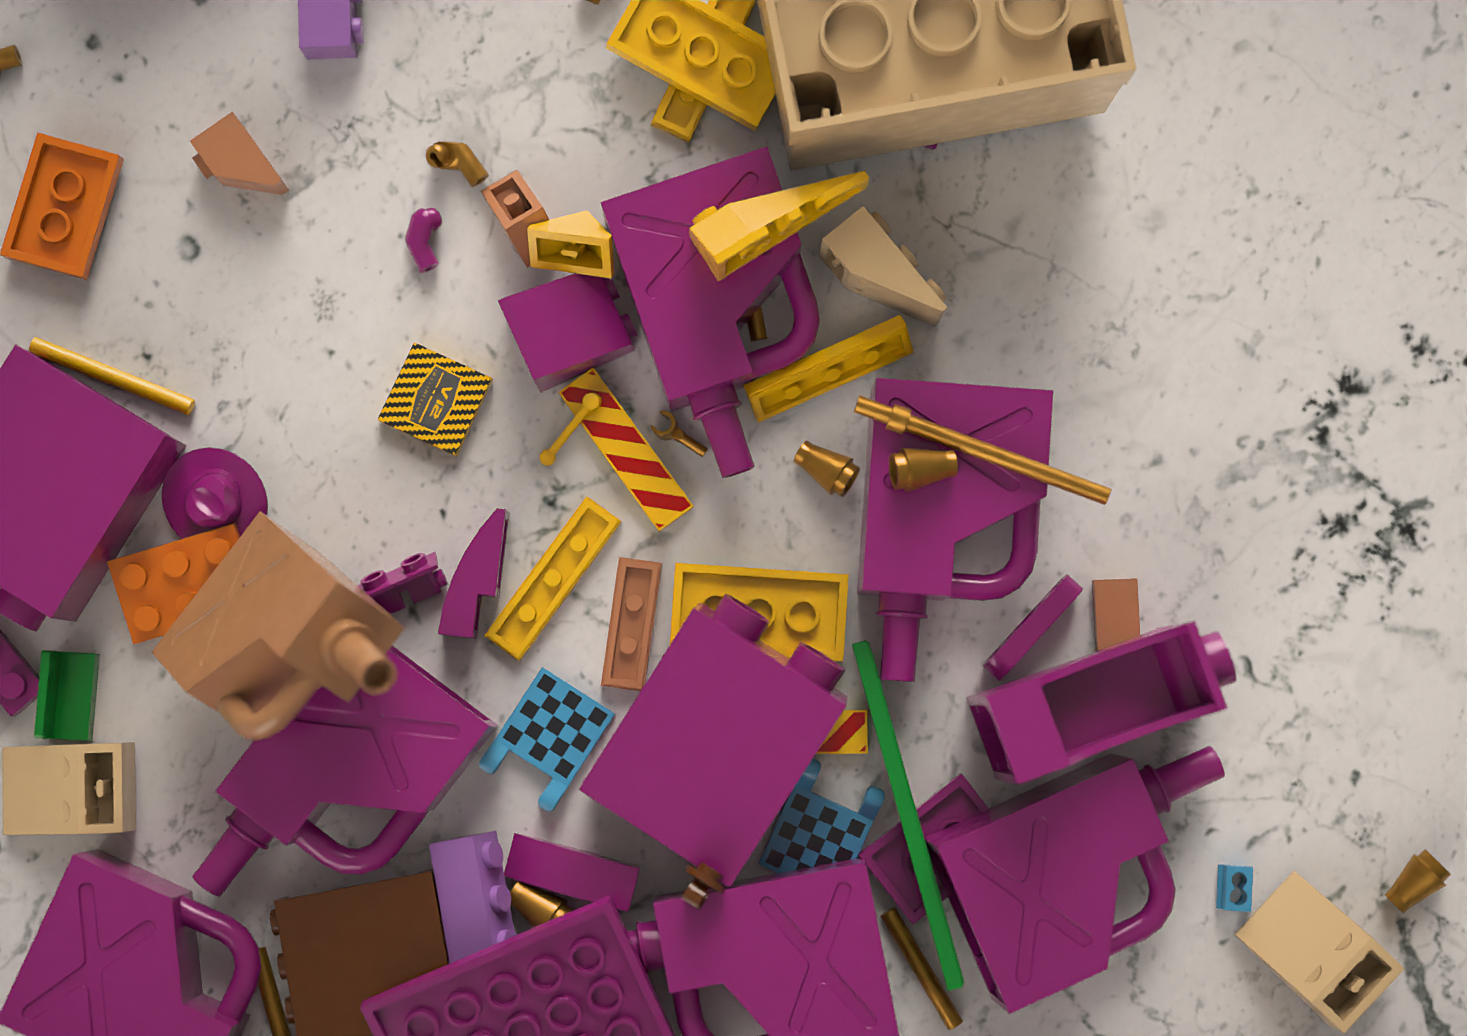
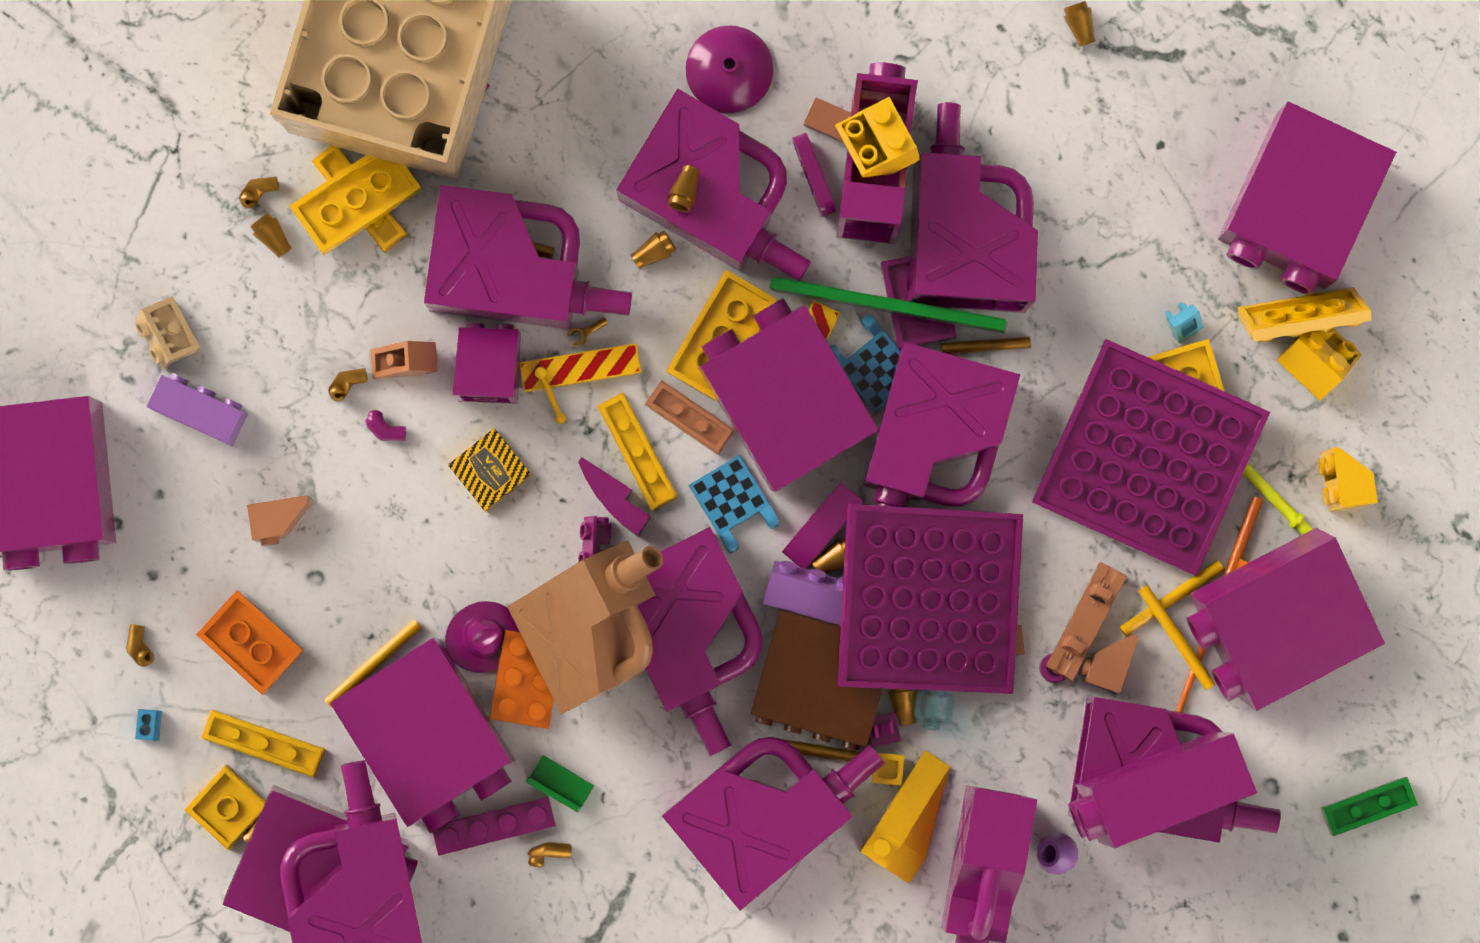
camera: 60 degrees left, 0 degrees up
(69, 789) = (617, 811): tan slope -> none
(572, 245) = (439, 334): yellow slope -> none
(702, 884) = (867, 441): reddish brown plate -> none
(753, 226) = (487, 216): yellow wedge -> none
(829, 368) = (593, 218): yellow tile -> none
(876, 268) = (545, 158): tan slope -> none
(900, 419) = (649, 188): pearl gold bar -> none
(1086, 446) = (733, 88): none -> magenta dish
(1117, 695) = (878, 140): none -> yellow slope
(1225, 887) = (1026, 138): dark azure piece -> none
(1319, 952) = (1092, 103): tan slope -> none

